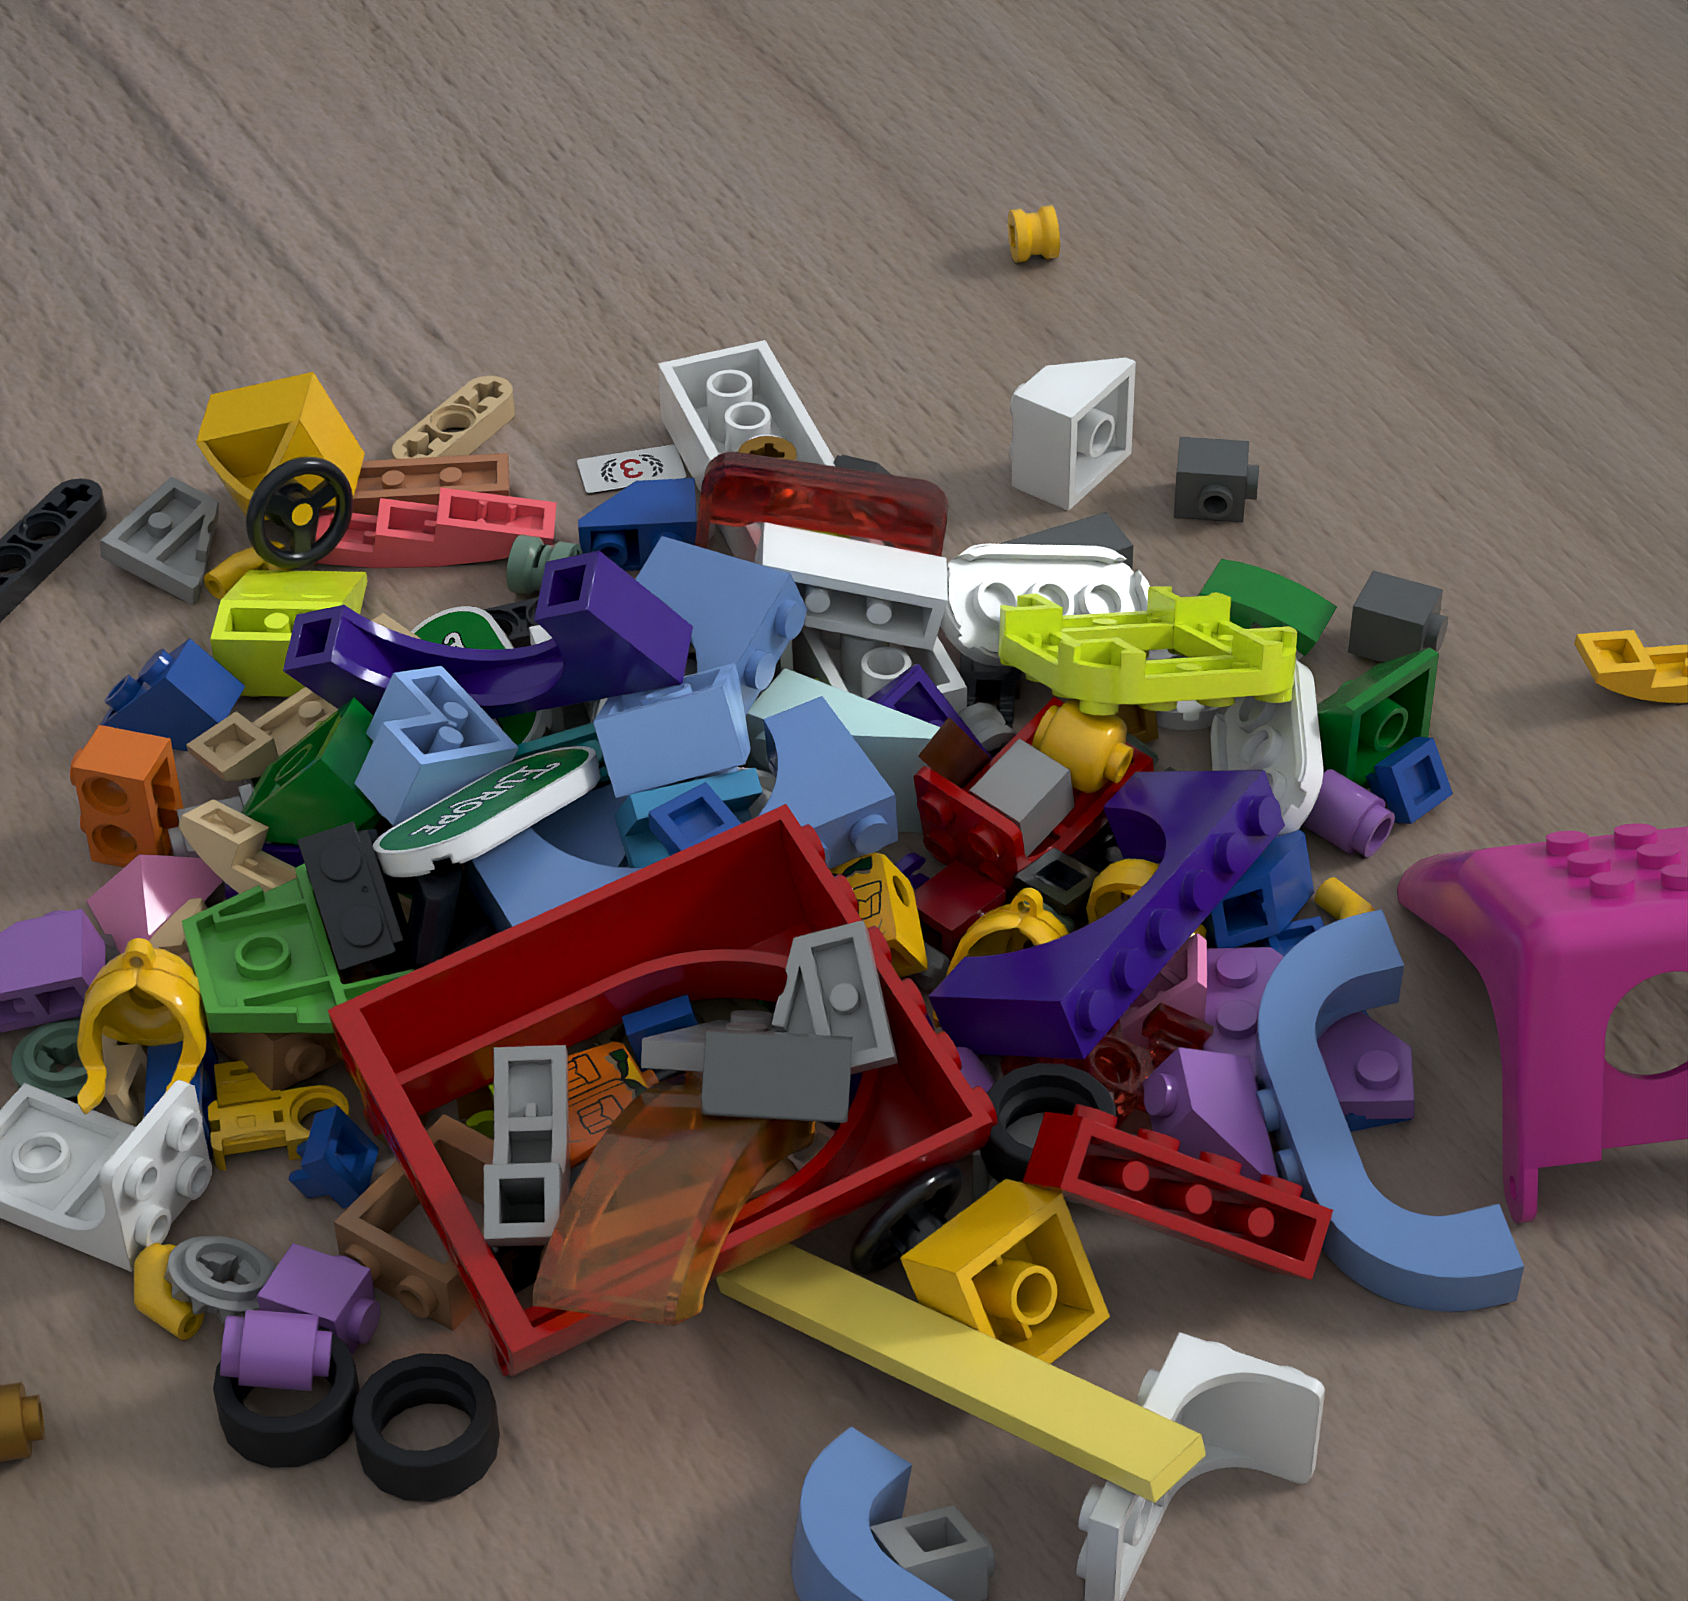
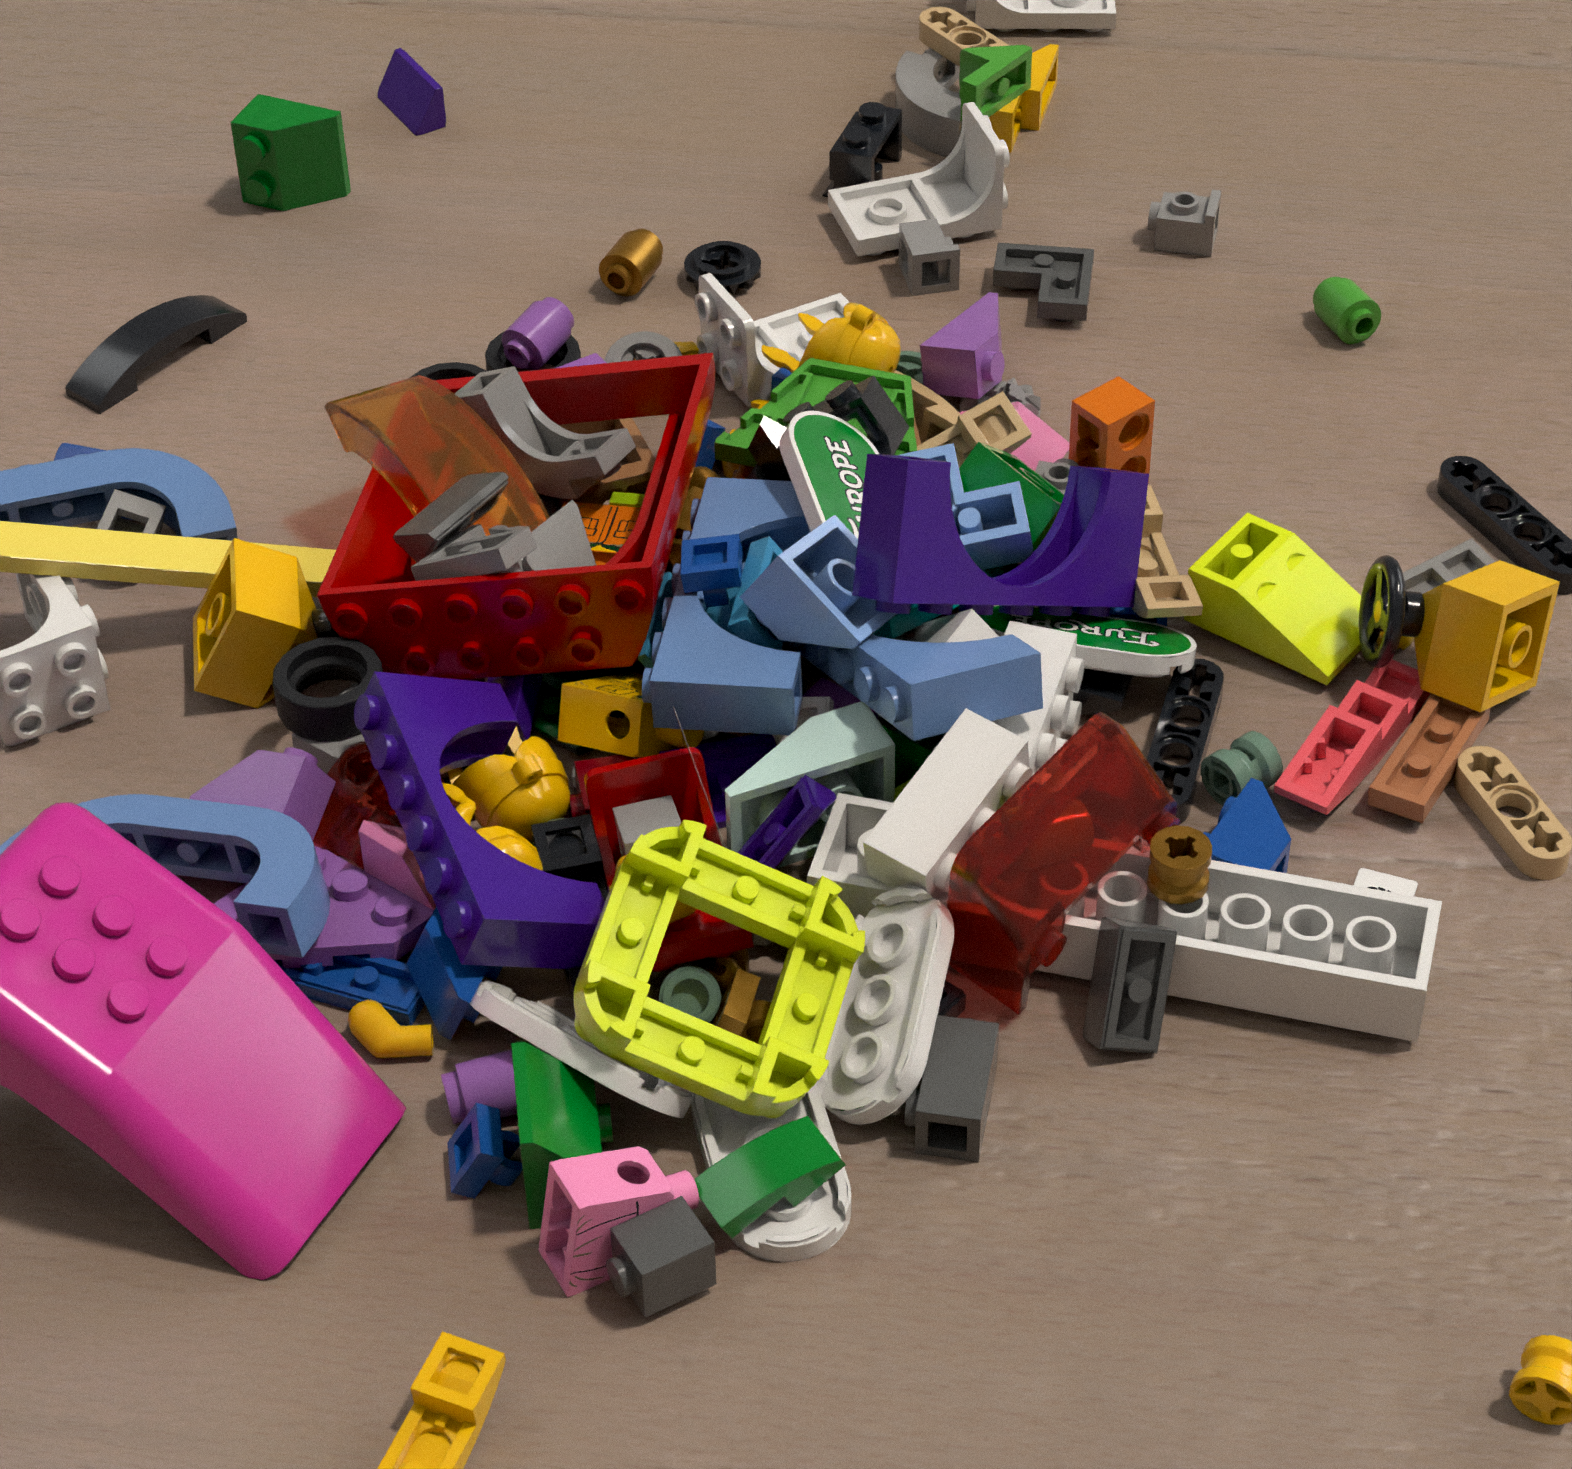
camera: 125 degrees right, 0 degrees up
(174, 696) = (1222, 503): blue slope -> none
(1071, 428) = (1125, 1161): white slope -> none
(1177, 1194) = (202, 696): red brick -> none
(1214, 479) = (994, 1268): dark grey brick -> none
(1391, 629) = (590, 1197): none -> bright pink torso

